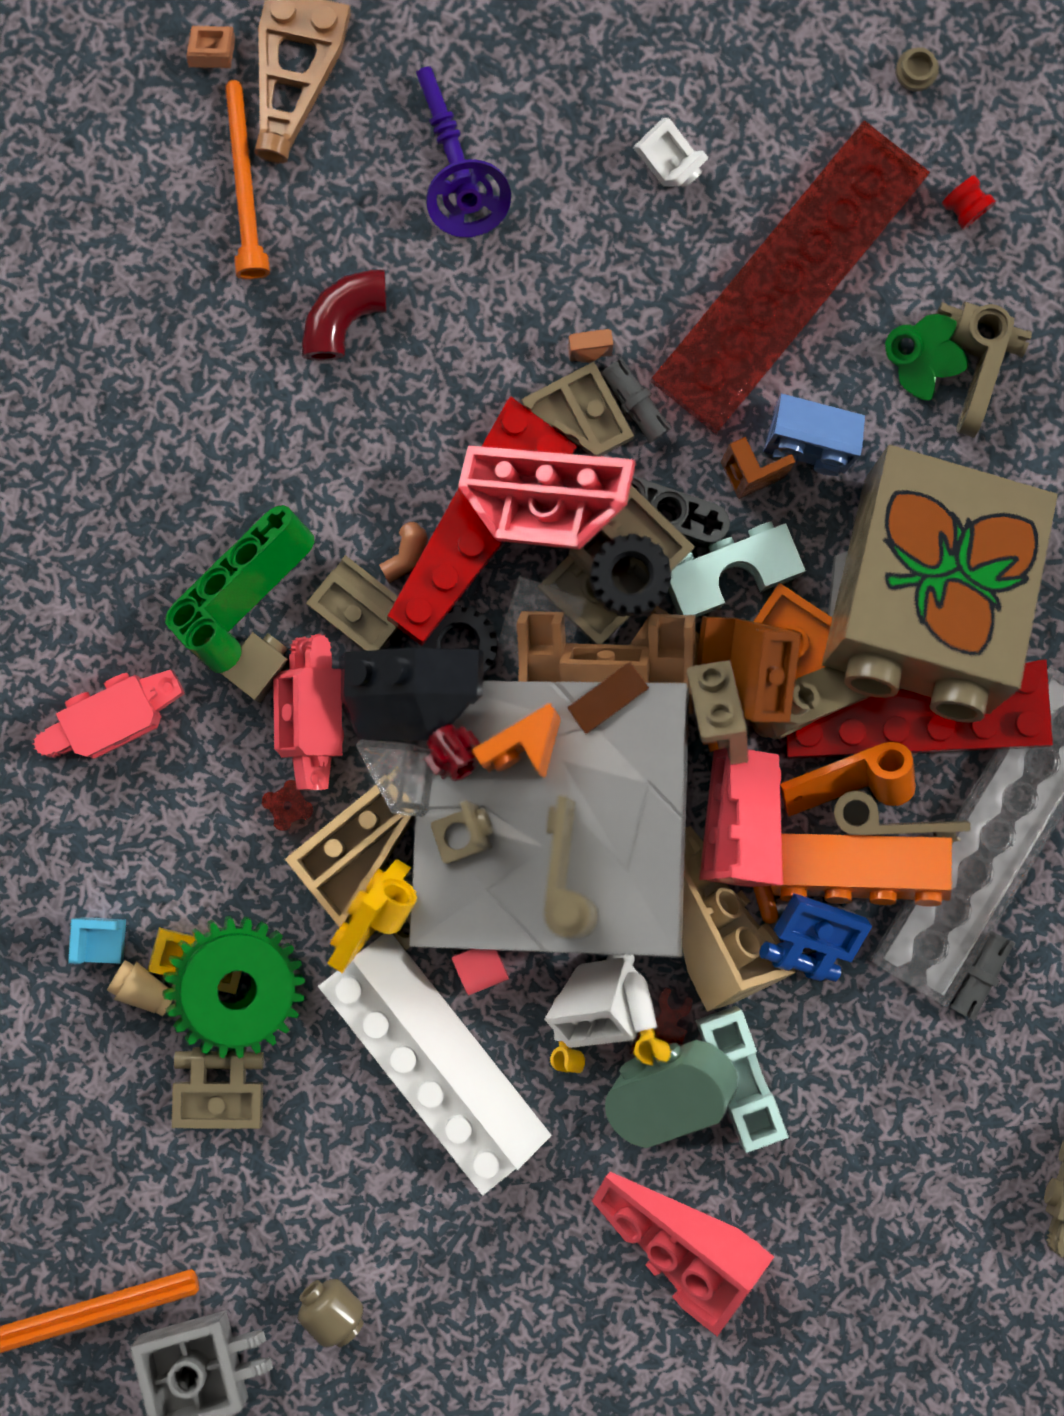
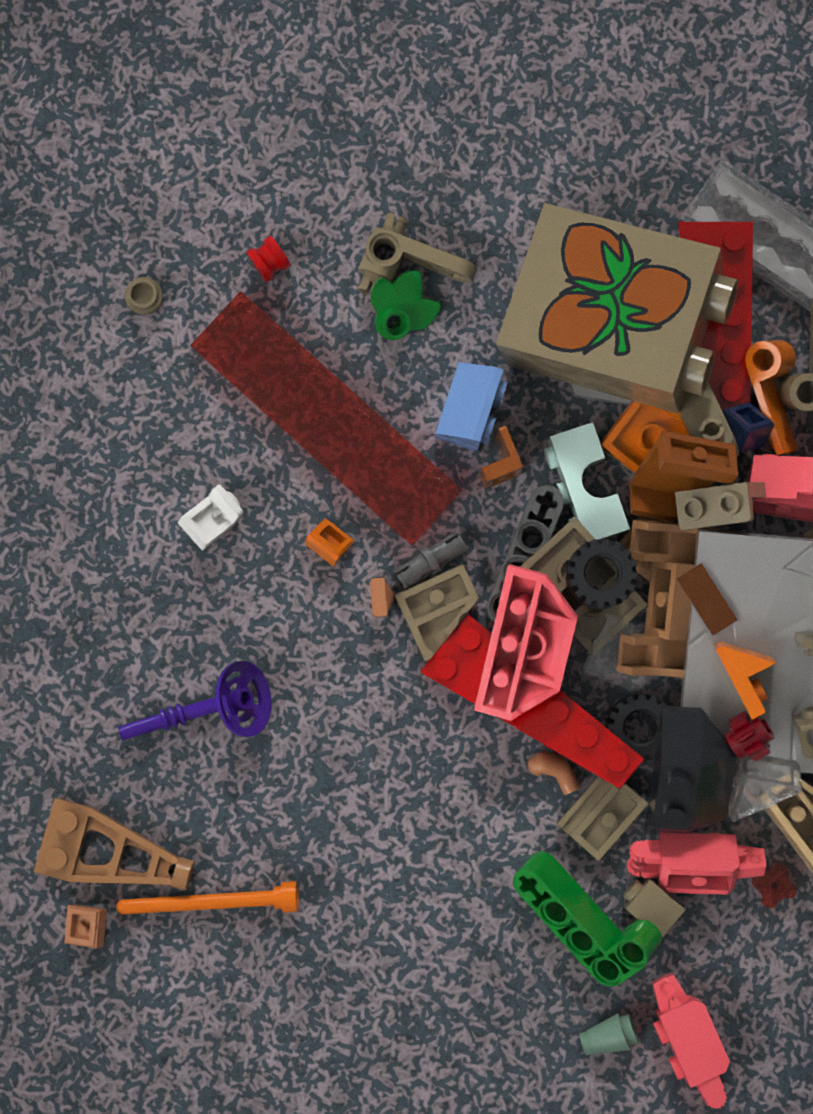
camera: 85 degrees left, 0 degrees up
(112, 628) = (610, 1035): none -> sand green cone
(337, 309) = (334, 820): dark red cylinder -> none
(651, 289) = (329, 542): none -> orange slope
(810, 747) = (748, 426): none -> dark blue slope

